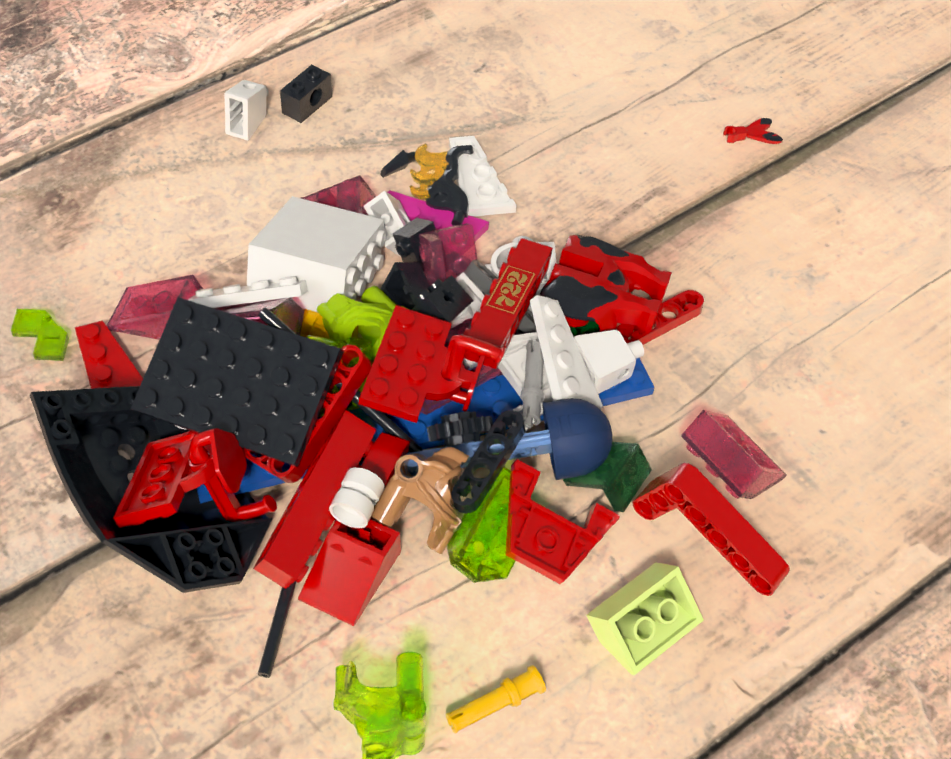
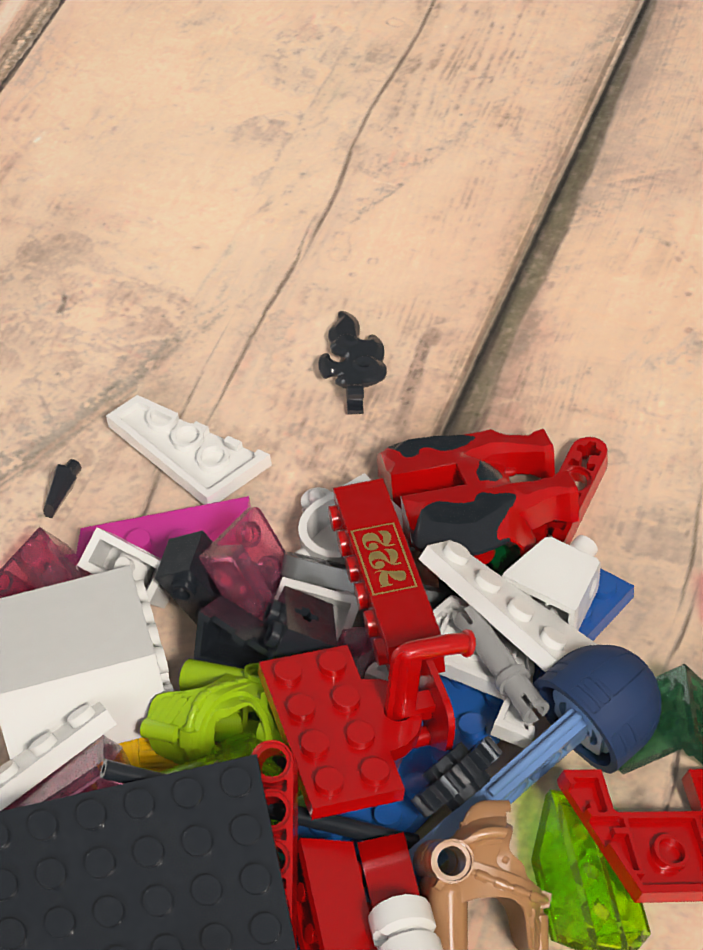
camera: 25 degrees left, 5 degrees down
(438, 178) = (136, 477): piece -> none
(492, 462) = (530, 794): black beam -> none
(607, 186) = (362, 361): none -> black piece
(754, 131) = (487, 199): red piece -> none

